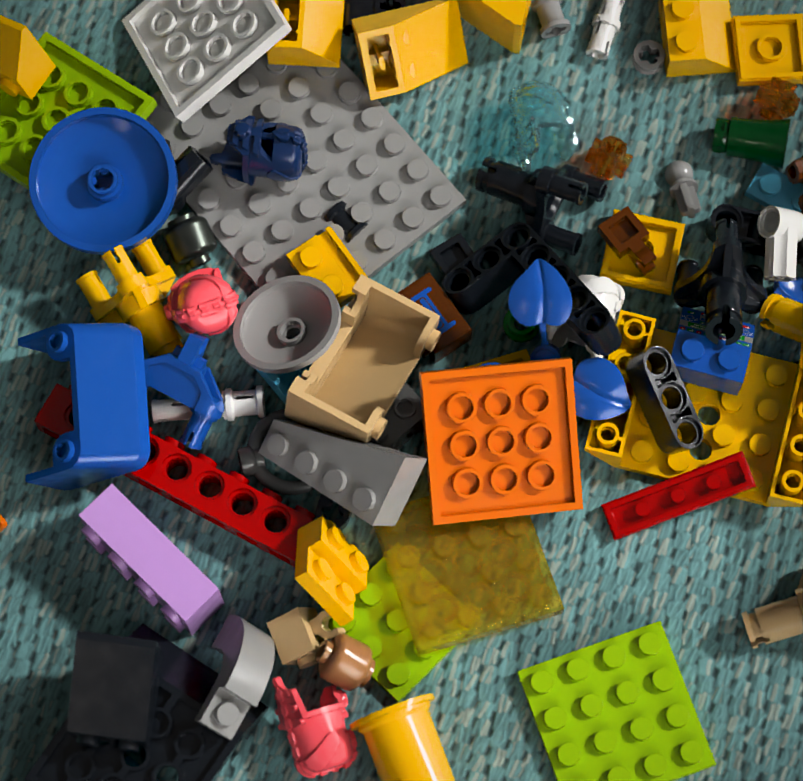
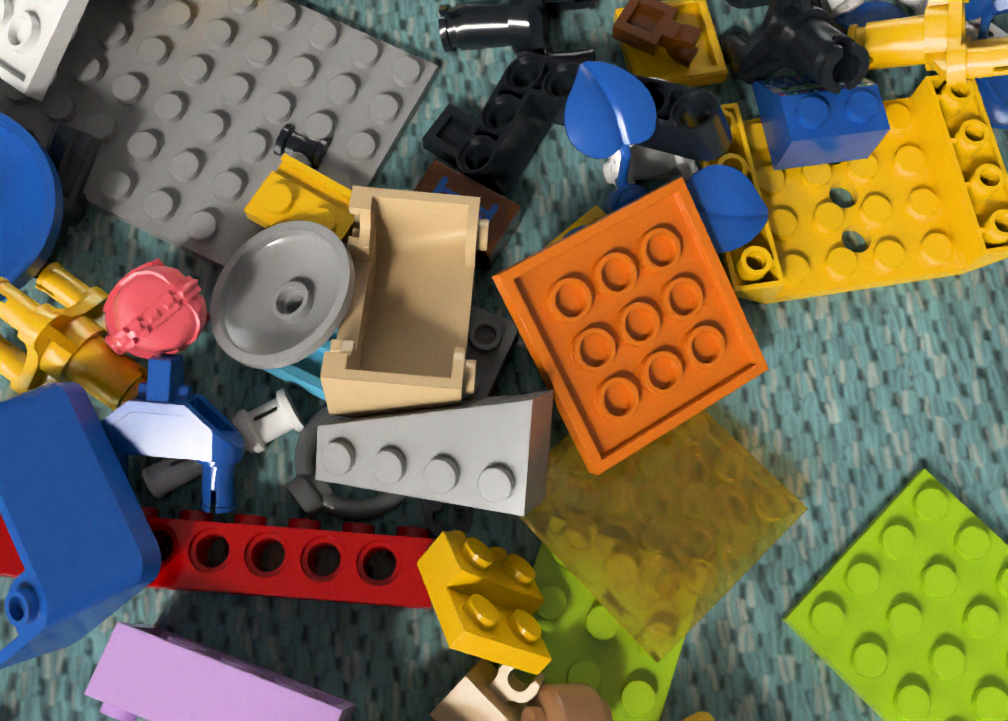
camera: 30 degrees left, 0 degrees up
(190, 240) = (110, 242): pearl dark grey head -> none
(262, 151) = (157, 92): dark blue helmet -> none
(515, 334) = (574, 168): green plate -> none
(678, 495) = (866, 303): red tile -> none
(679, 410) = (805, 190): black beam -> none

